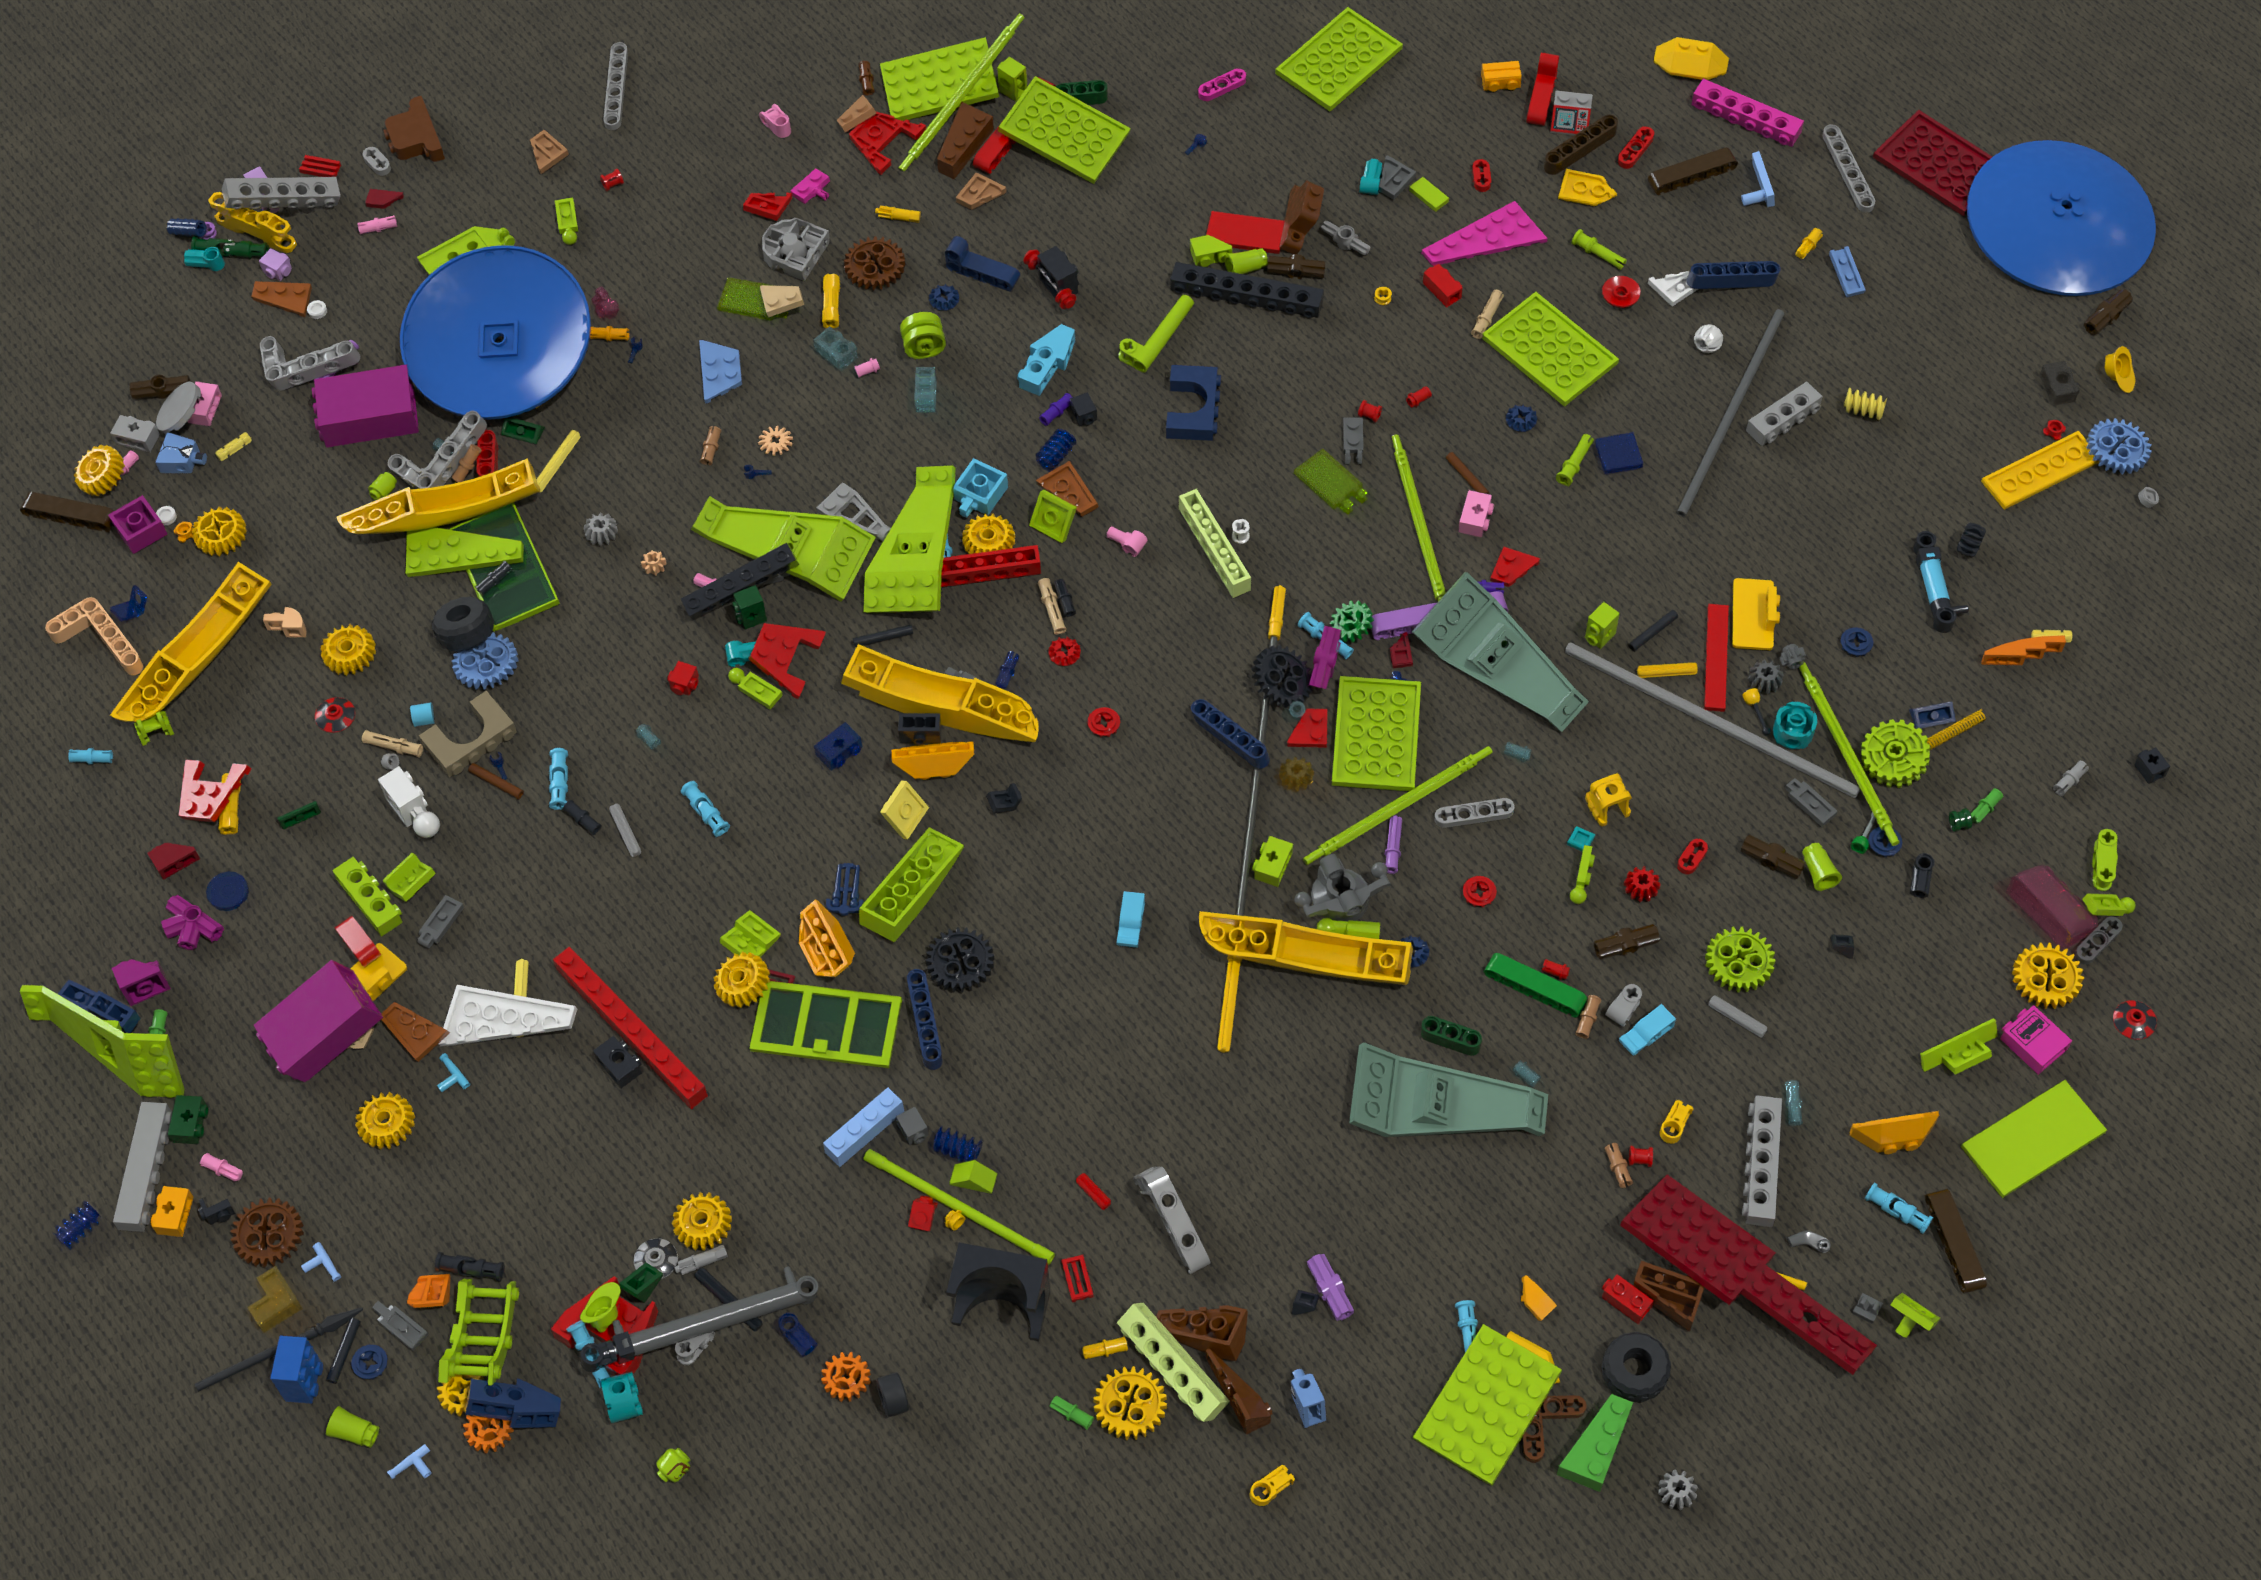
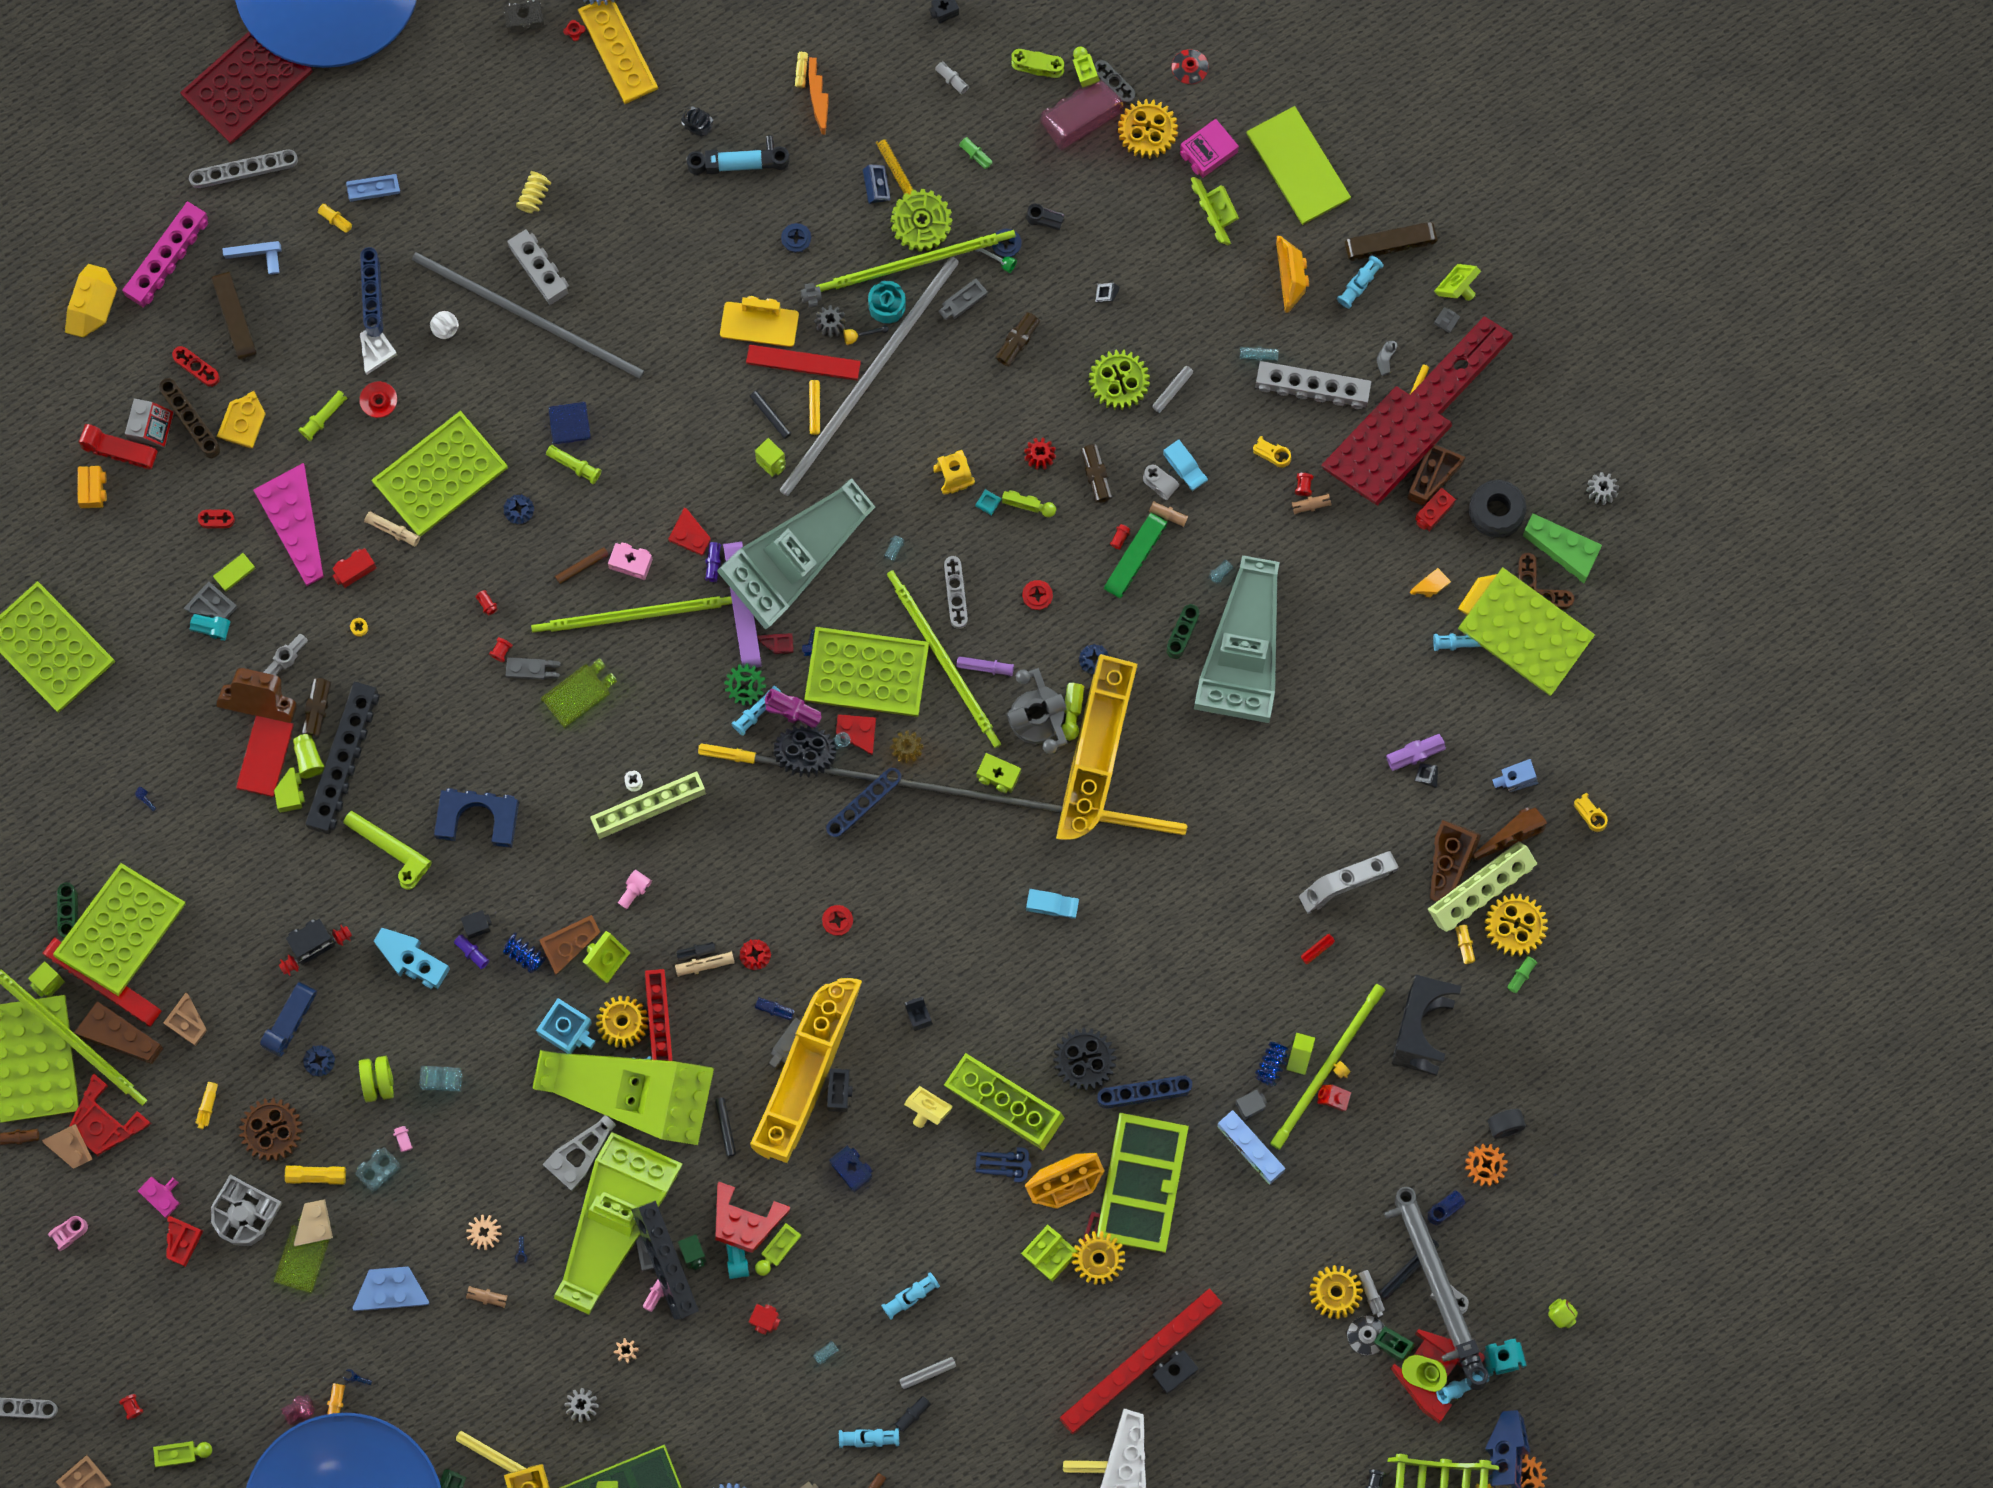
camera: 90 degrees left, 15 degrees up
(933, 759) = (870, 1077): light orange wedge -> none
(1082, 1295) = (1400, 973): red tile -> none
(1226, 78) = (57, 758): dark pink beam -> none
(1689, 854) = (1009, 410): red beam -> none
(1821, 867) = (1031, 300): lime plant -> none
(1960, 819) = (990, 176): dark green wheel -> none

